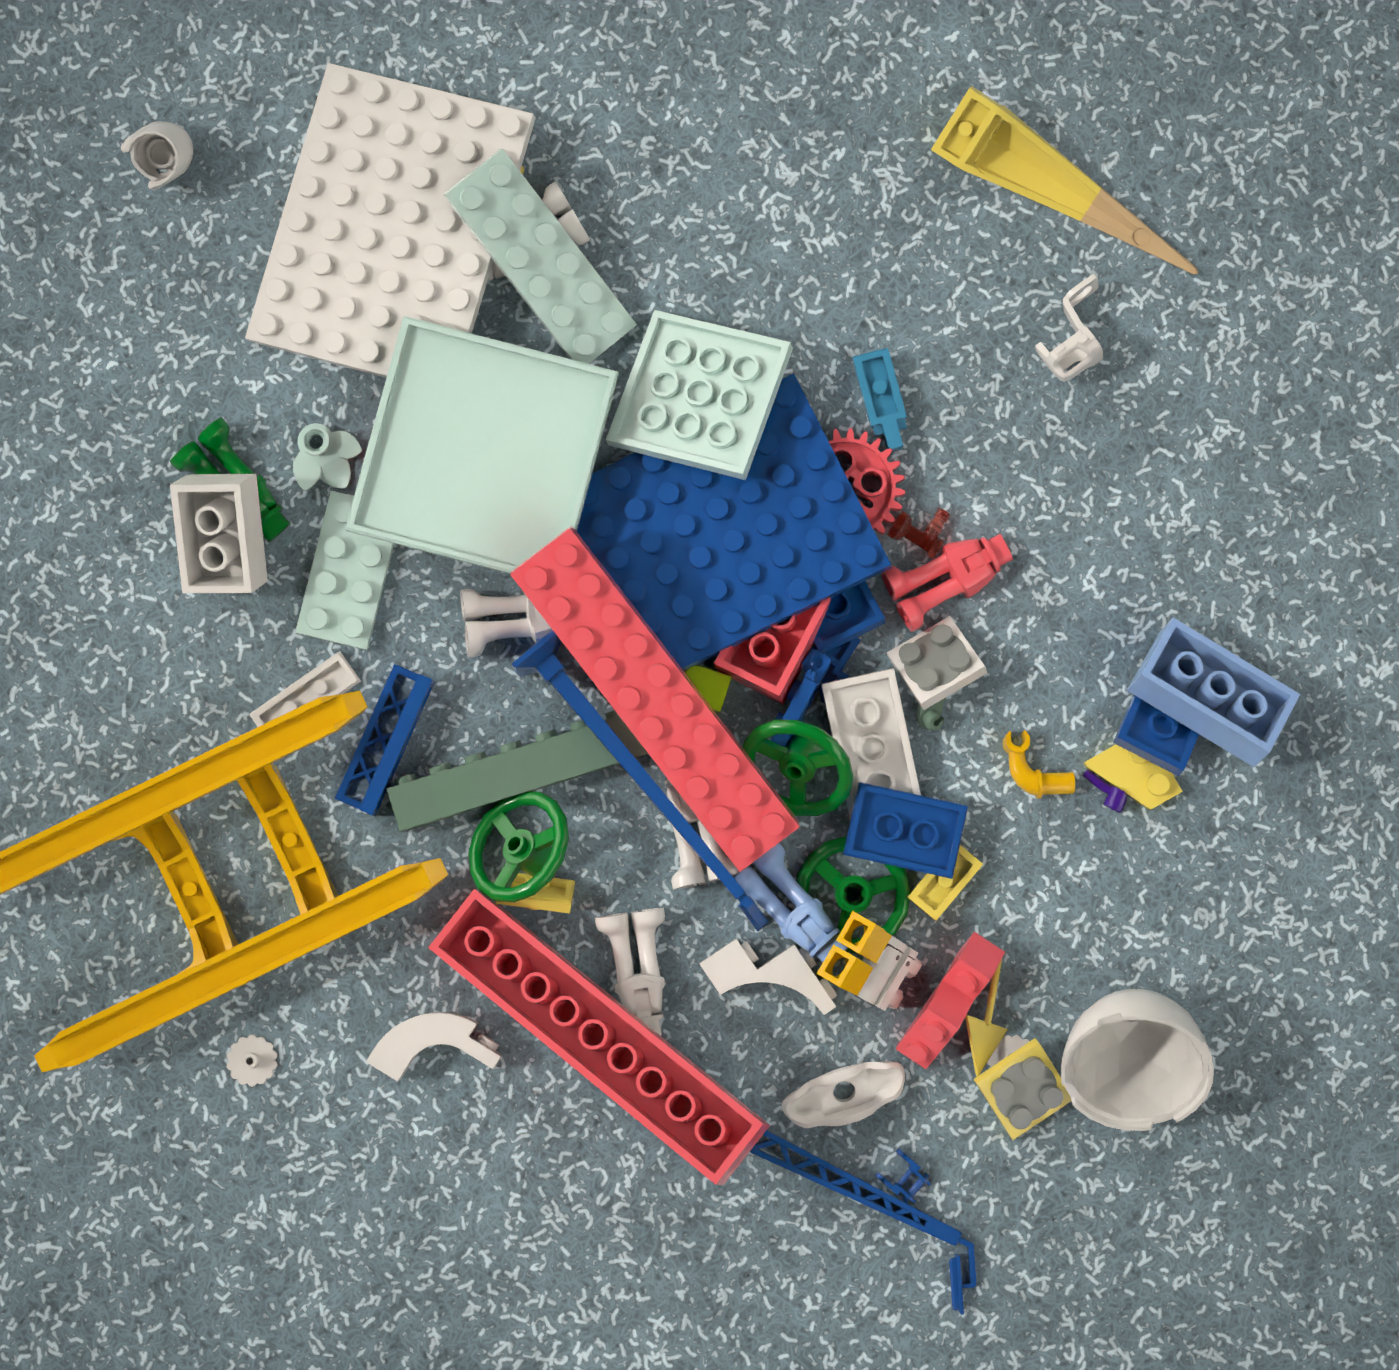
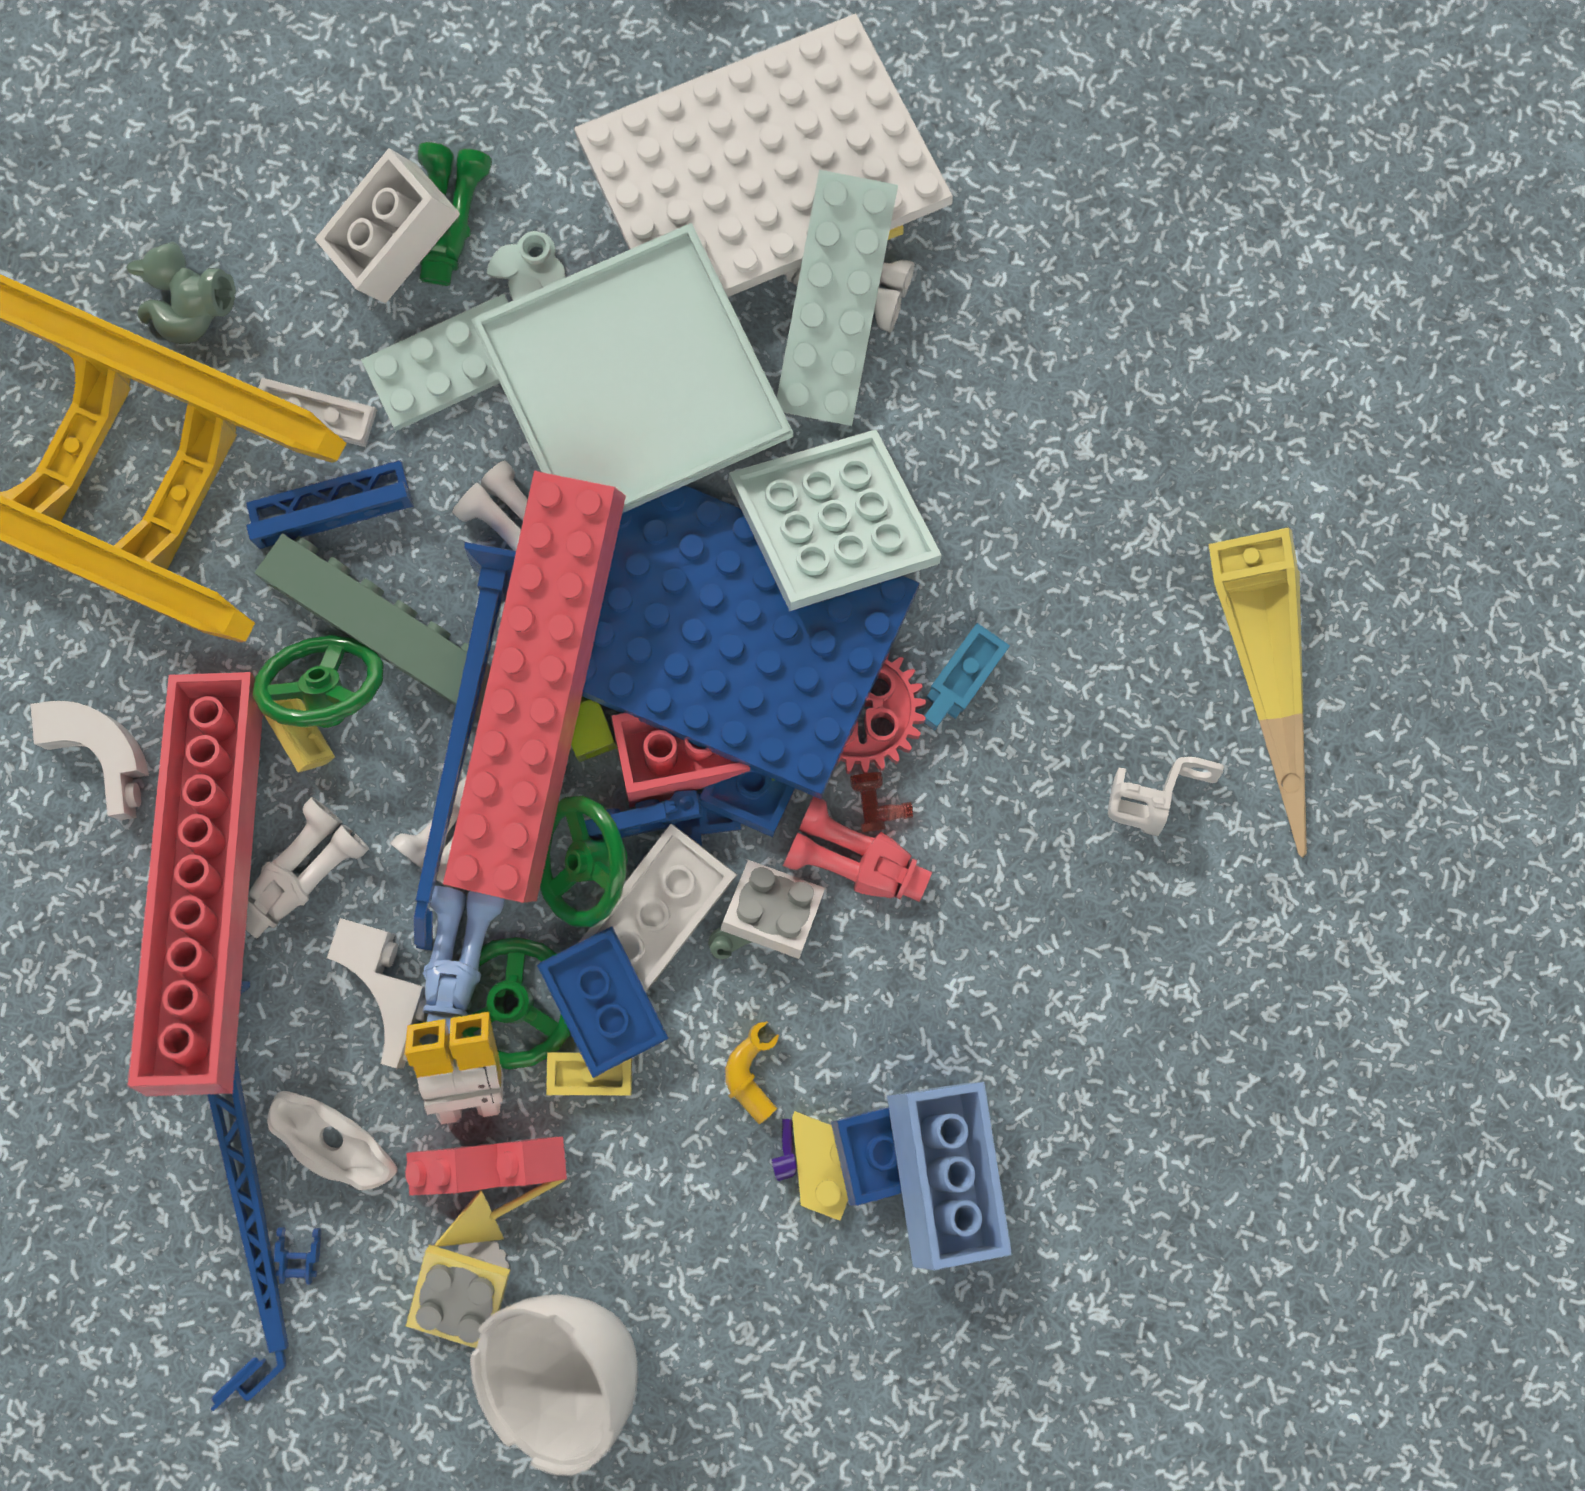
camera: 50 degrees right, 5 degrees down
(148, 715) = (193, 297): none -> sand green animal

